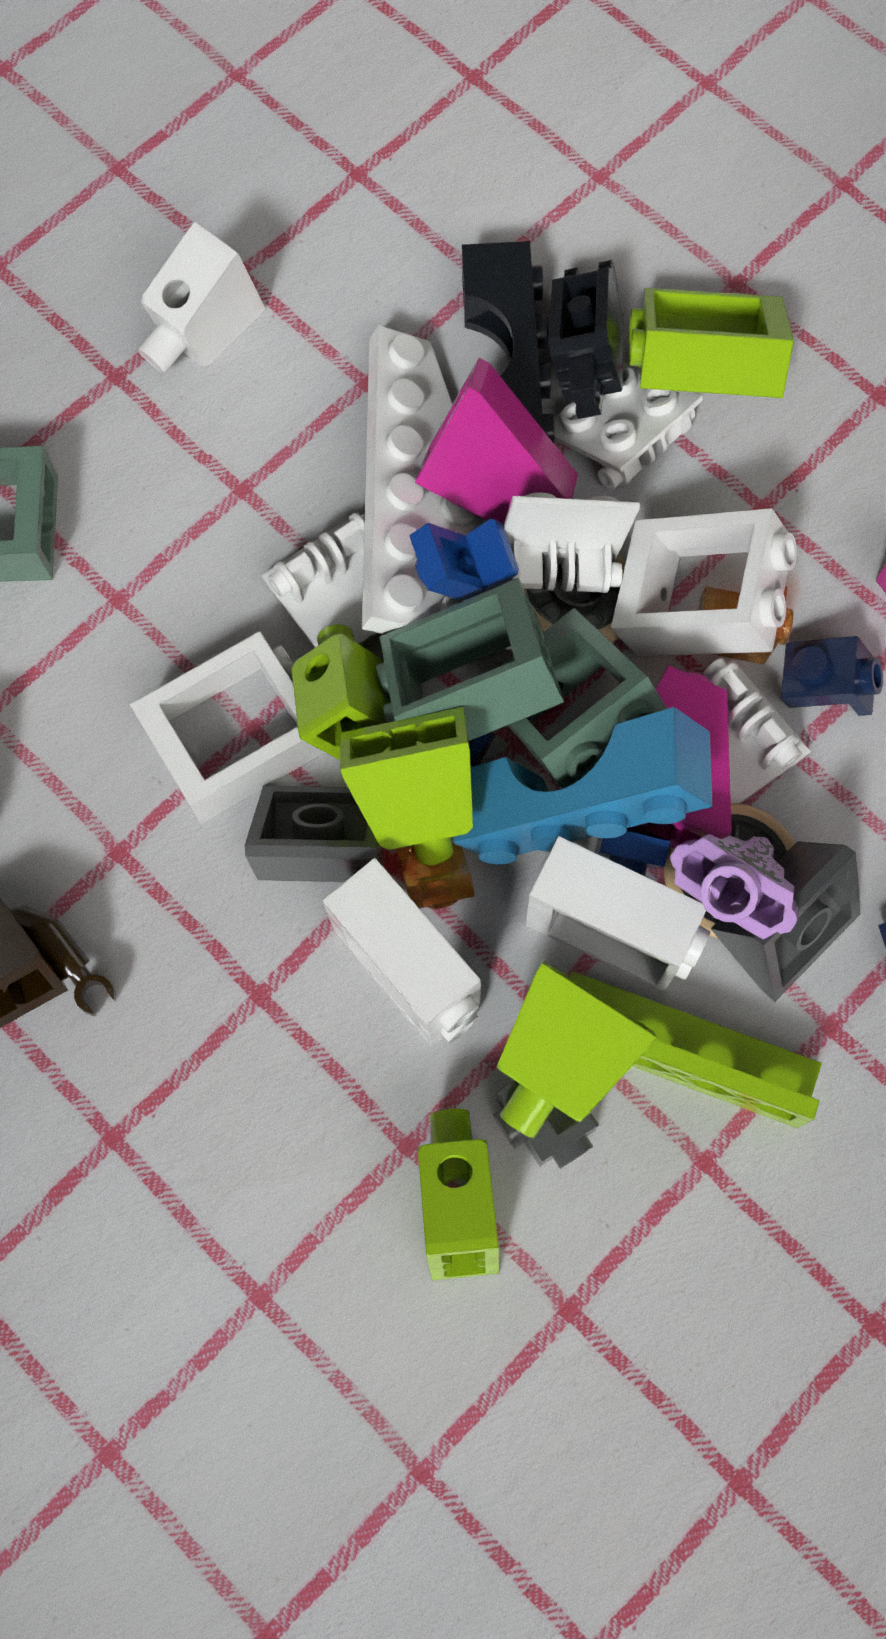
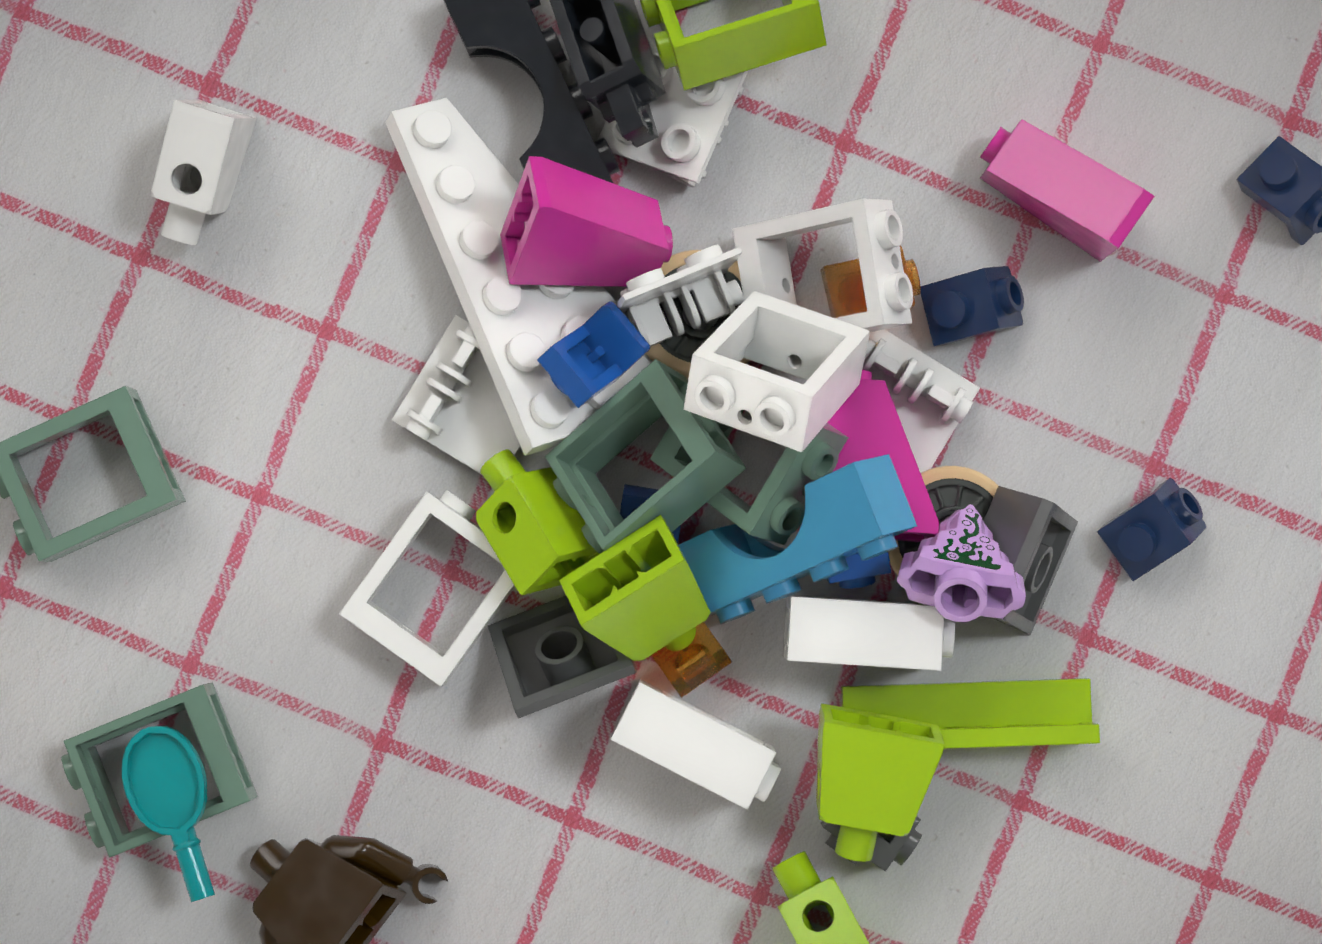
camera: 25 degrees left, 15 degrees up
(633, 618) = (786, 339): none -> white window

